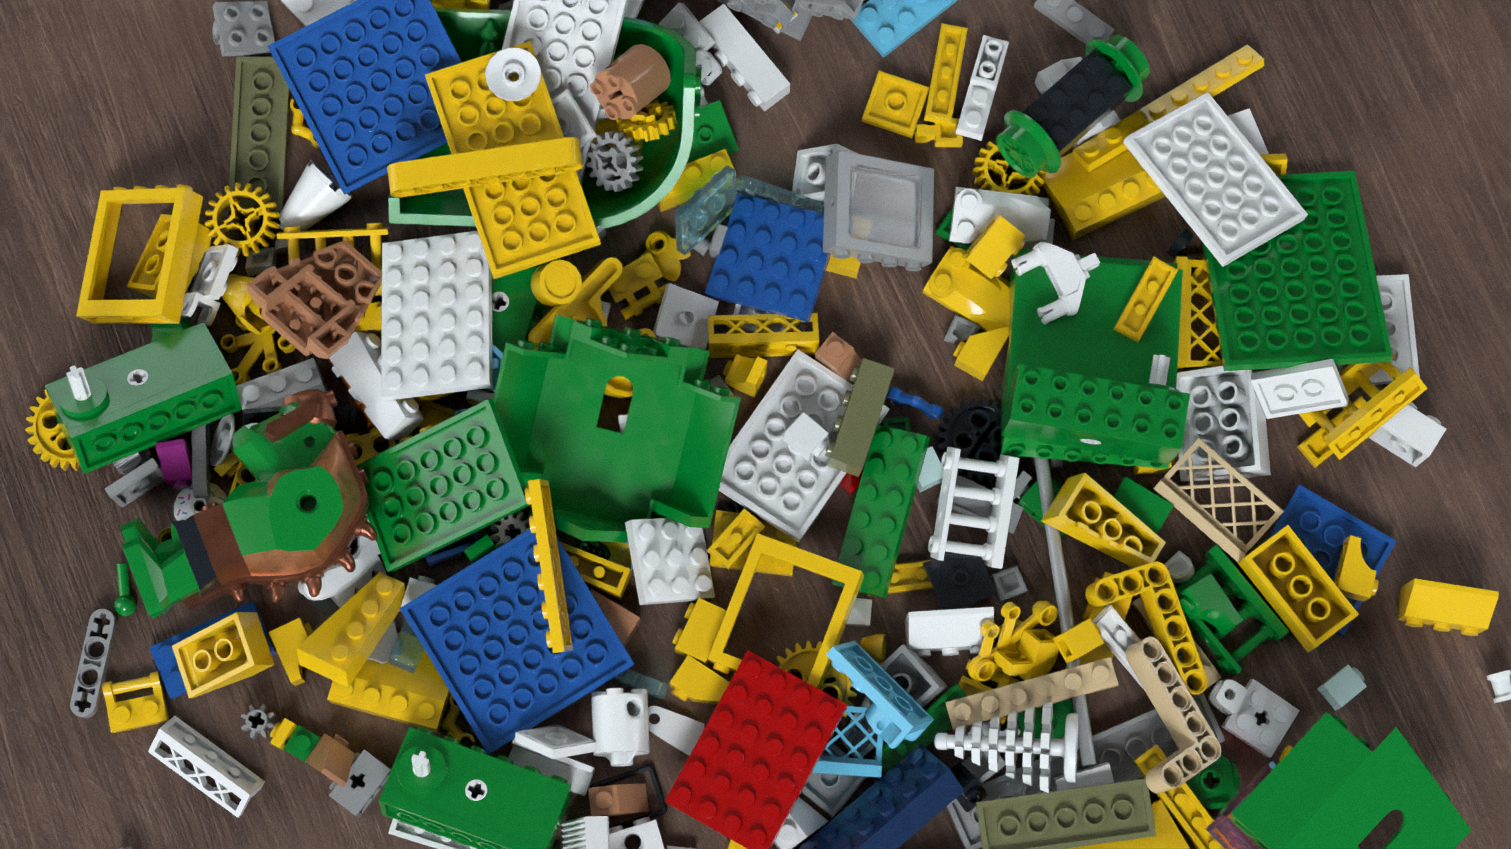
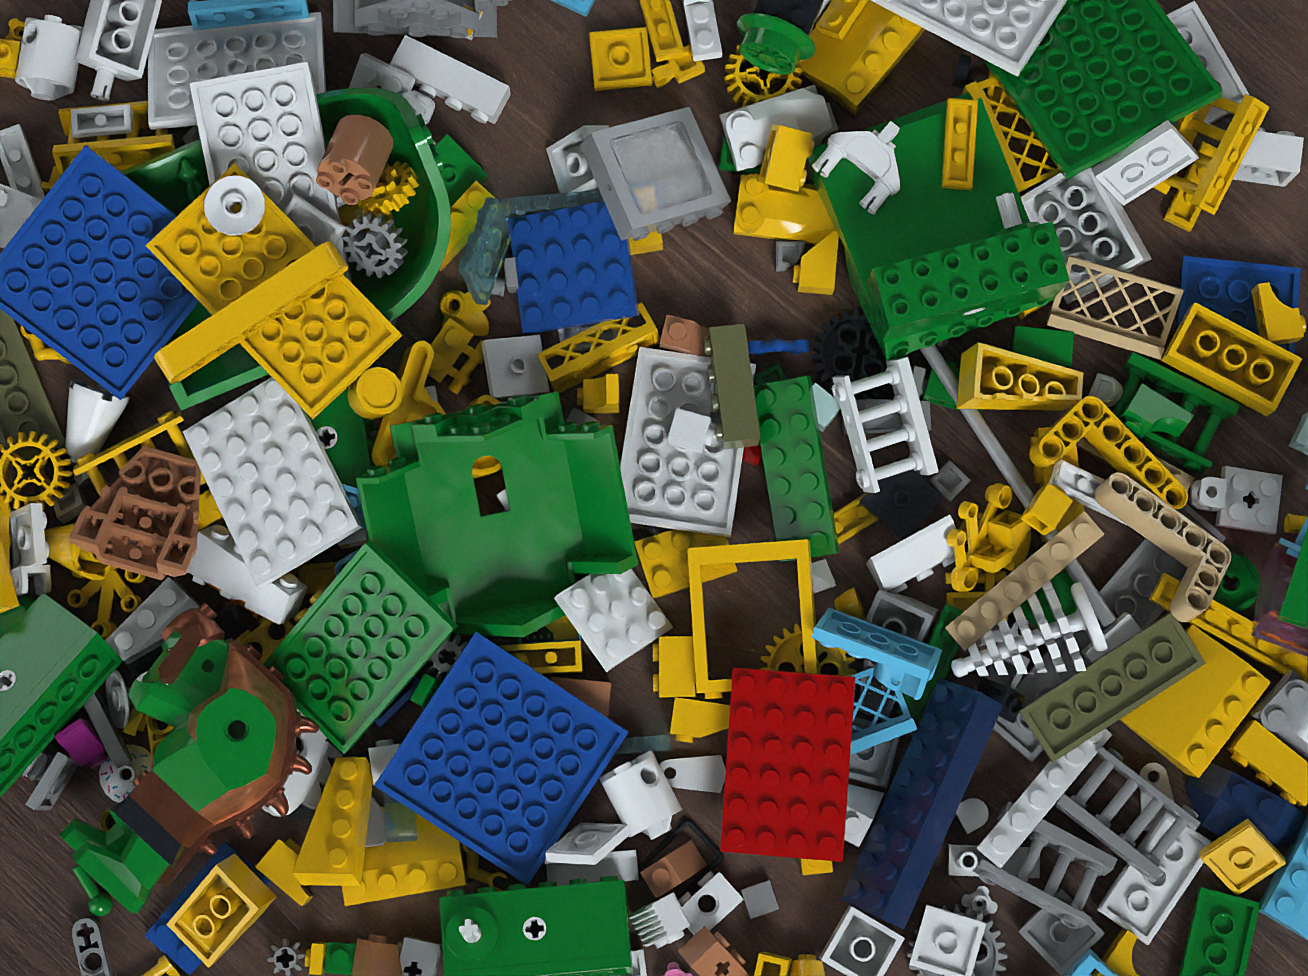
camera: 20 degrees left, 5 degrees up
(551, 573) = (510, 689): yellow plate -> none
(736, 539) = (668, 562): yellow plate -> none

